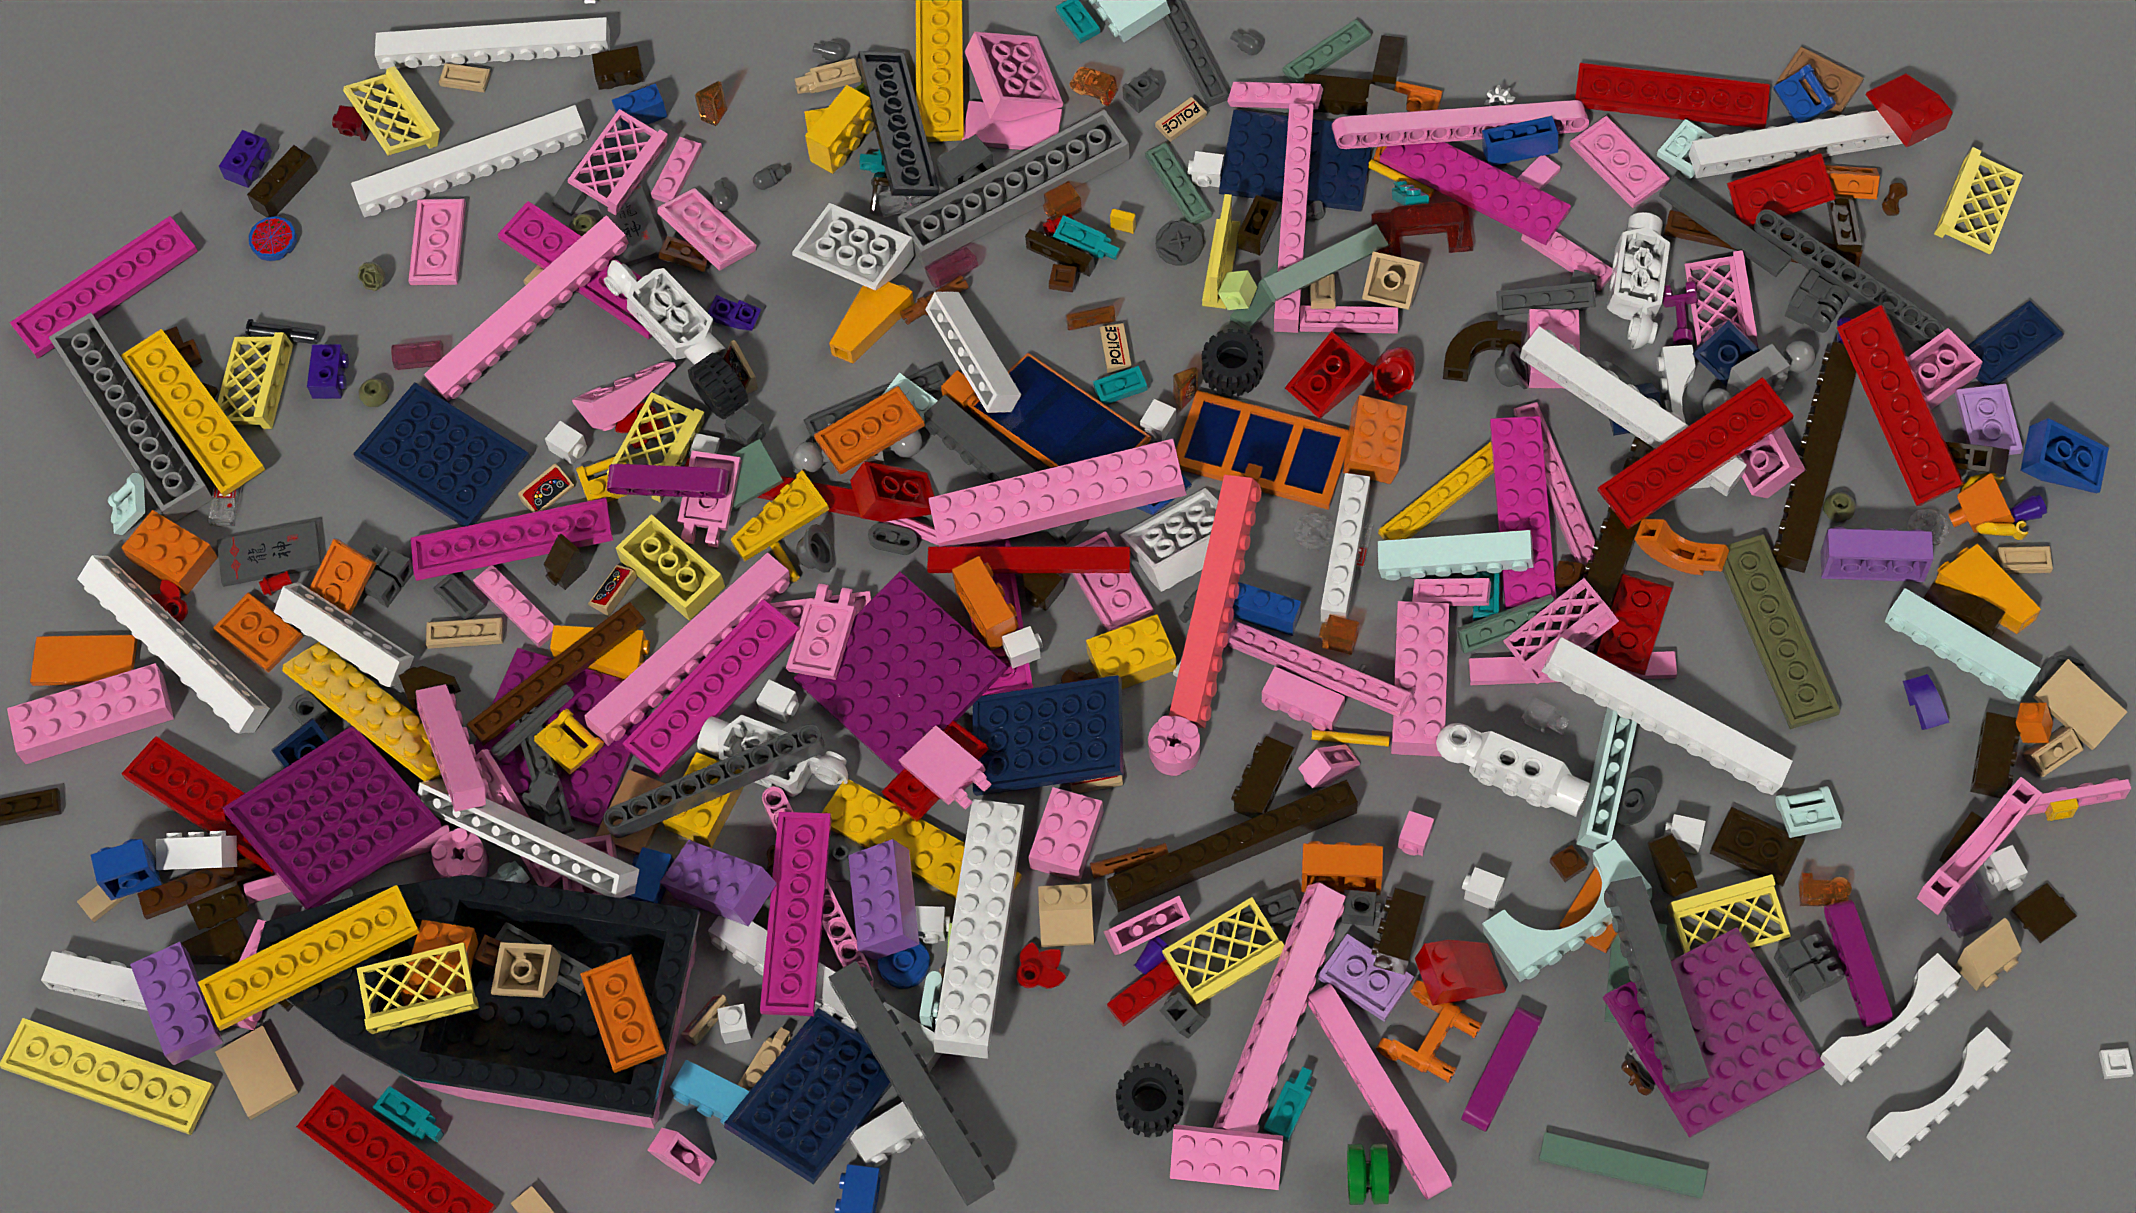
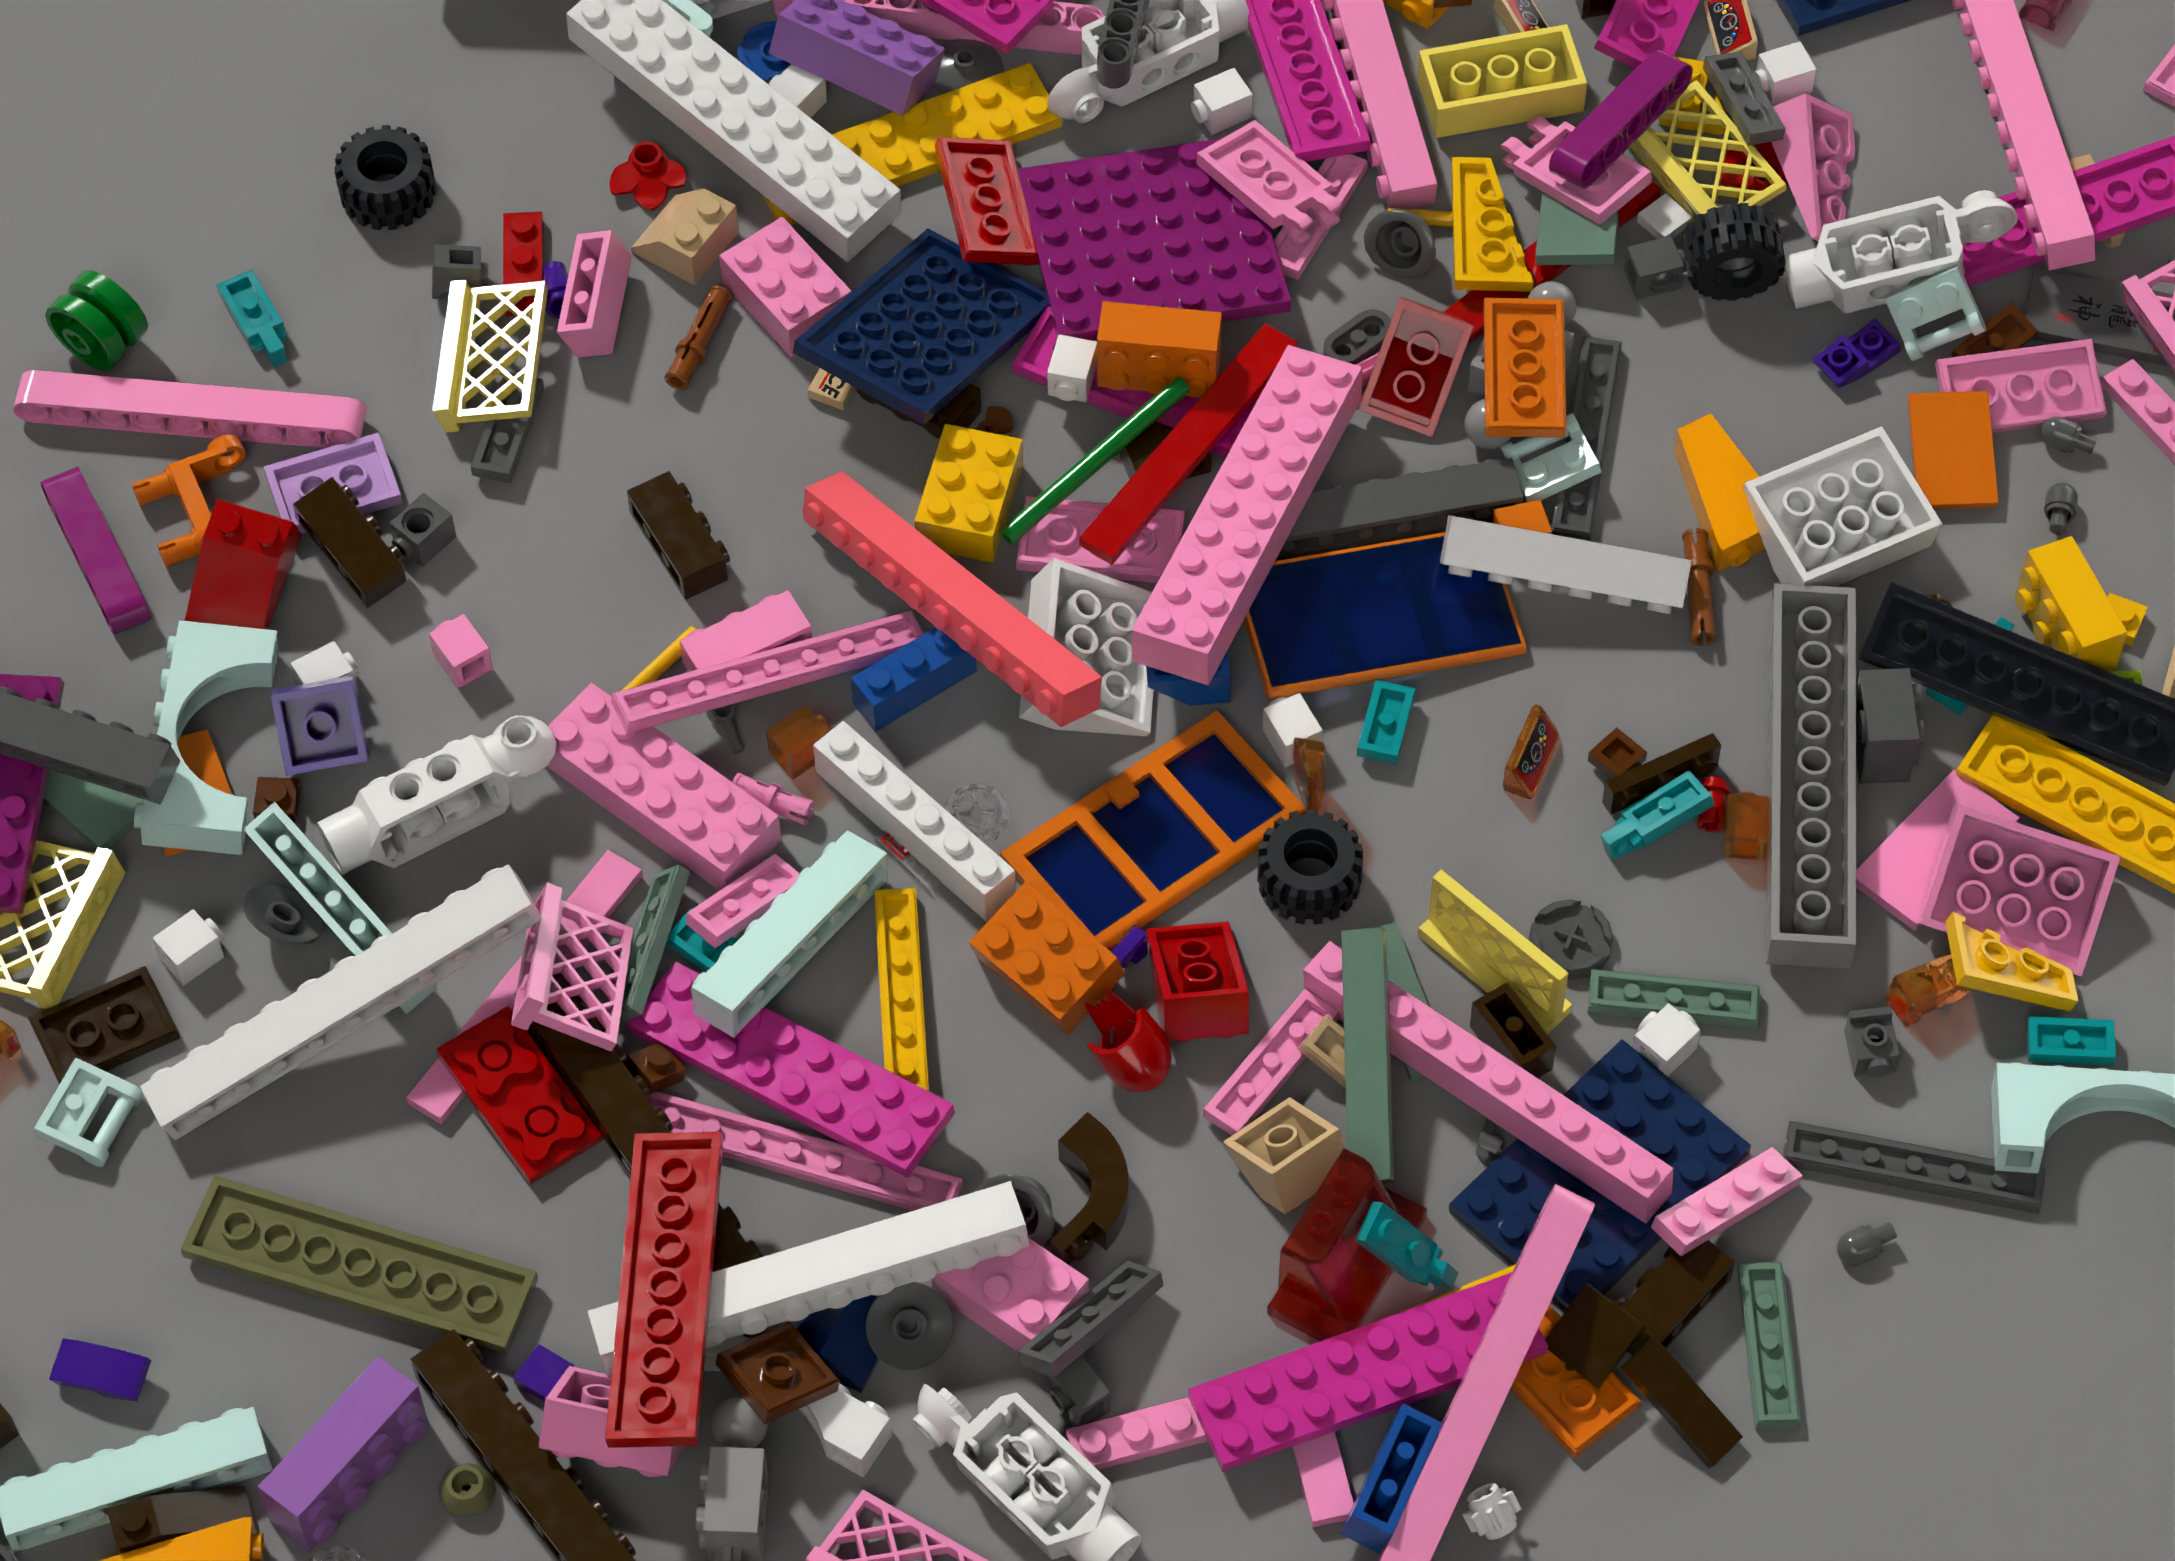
camera: 120 degrees right, 5 degrees down
(581, 221) = (2131, 249): olive plate -> none
(605, 442) = (1743, 98): none -> dark grey plate
(692, 278) = (1929, 301): none -> light aqua plate
(740, 366) = (1757, 317): slope -> none
(767, 236) = (1953, 449): none -> orange tile
(945, 767) = (968, 193): bright pink tile -> none
(951, 267) = (1738, 634): clear pink brick -> none
(1063, 57) = (1996, 968): none -> yellow wing
(1070, 598) = (1094, 460): none -> green piece
(1115, 347) = (1455, 757): tan tile -> none
(1123, 221) = (1656, 882): yellow tile -> none
(1177, 732) = (798, 456): bright pink brick -> none
(1180, 119) = (1787, 1071): tan tile -> none
(1226, 1157) = (253, 202): bright pink plate -> none
(1232, 845) = (617, 449): dark brown brick -> none
(1237, 290) = (1421, 942): yellowish green brick -> none
(1280, 1010) = (365, 357): bright pink brick -> none
(1328, 765) = (632, 617): bright pink slope -> none
(1339, 411) = (1132, 947): none -> dark purple tile
(1342, 866) = (479, 528): orange brick -> none
(1380, 628) = (777, 799): none -> bright pink pin
(1520, 855) = (320, 725): none -> brick
(1671, 865) = (154, 887): dark brown slope -> none
(1676, 552) = (571, 1223): orange arch -> none
(1682, 335) = (949, 1530): magenta bar -> none
(1686, 396) = (777, 1372): none -> reddish brown tile
(1723, 349) = (812, 1499): dark blue slope -> none
(1758, 515) = (541, 1372): none -> dark purple tile

